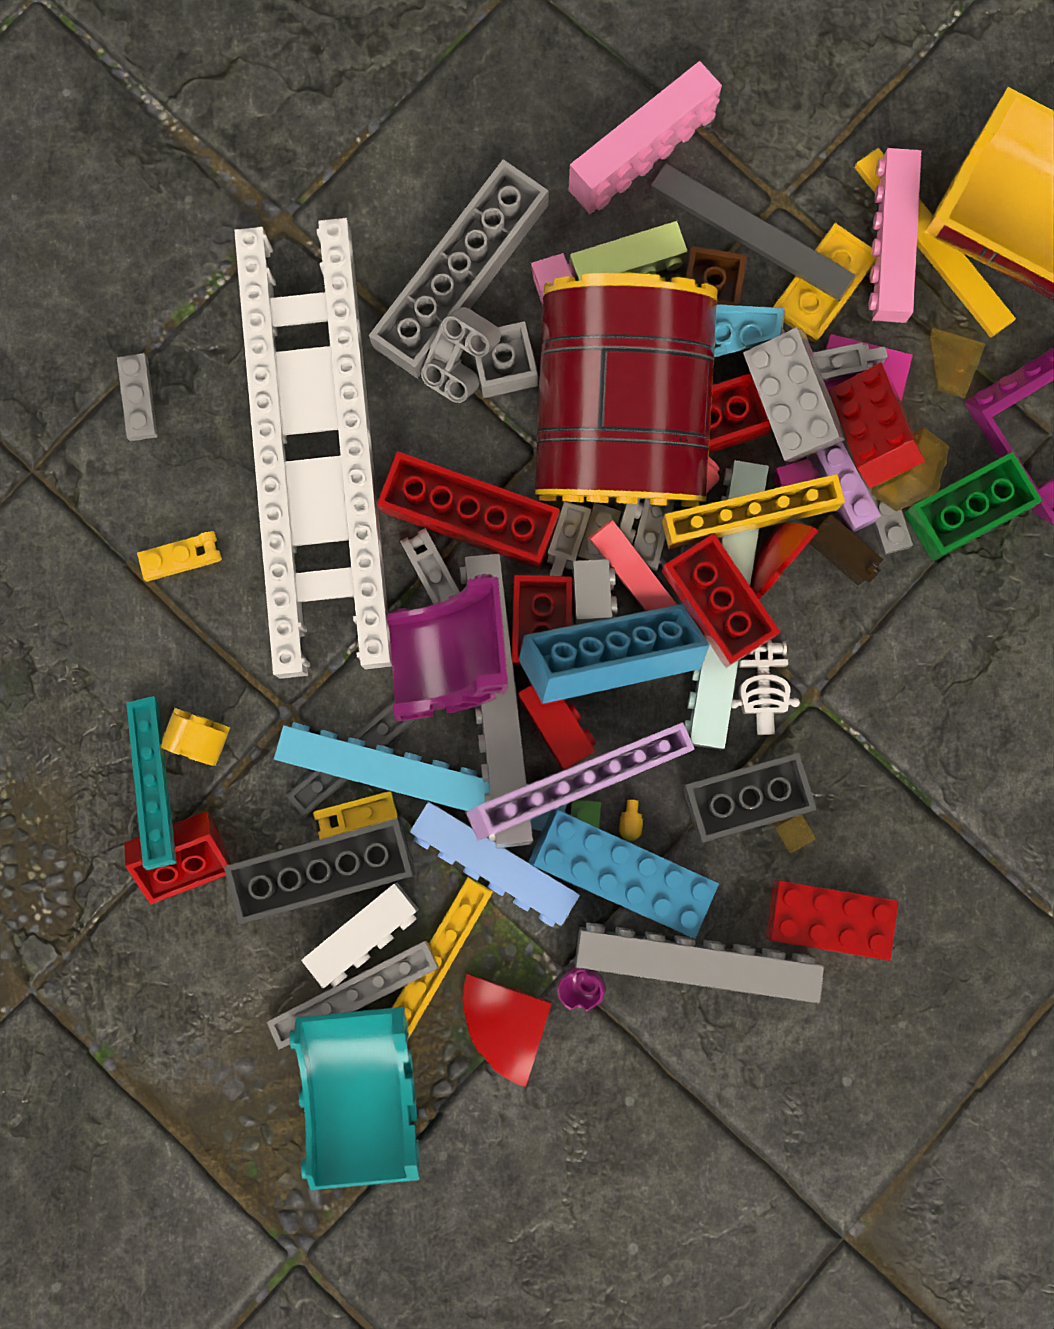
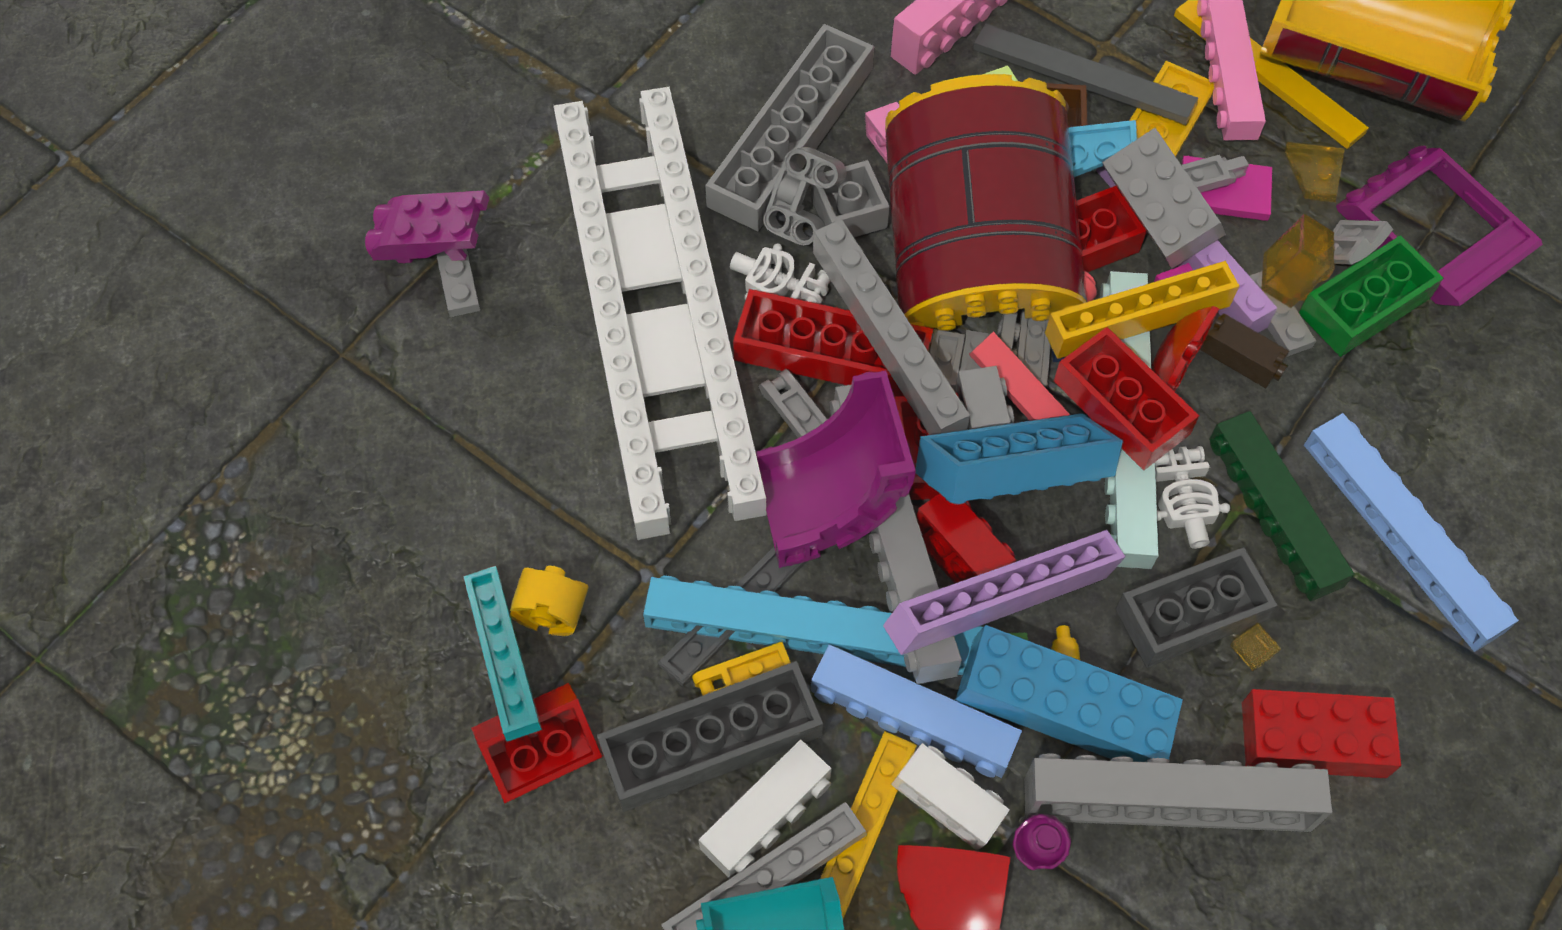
camera: 10 degrees left, 20 degrees down
(108, 351) = (425, 226): none -> magenta piece
(178, 556) = (514, 423): yellow plate -> none
(414, 422) = (764, 279): none -> white torso
(513, 942) = (951, 796): none -> white brick
(516, 513) = (889, 331): none -> light grey brick
(843, 706) = (1280, 506): none -> dark green brick
(876, 425) = (1257, 218): red brick -> none
(952, 742) = (1410, 532): none -> light blue brick
(970, 449) = (1358, 239): none -> light grey slope

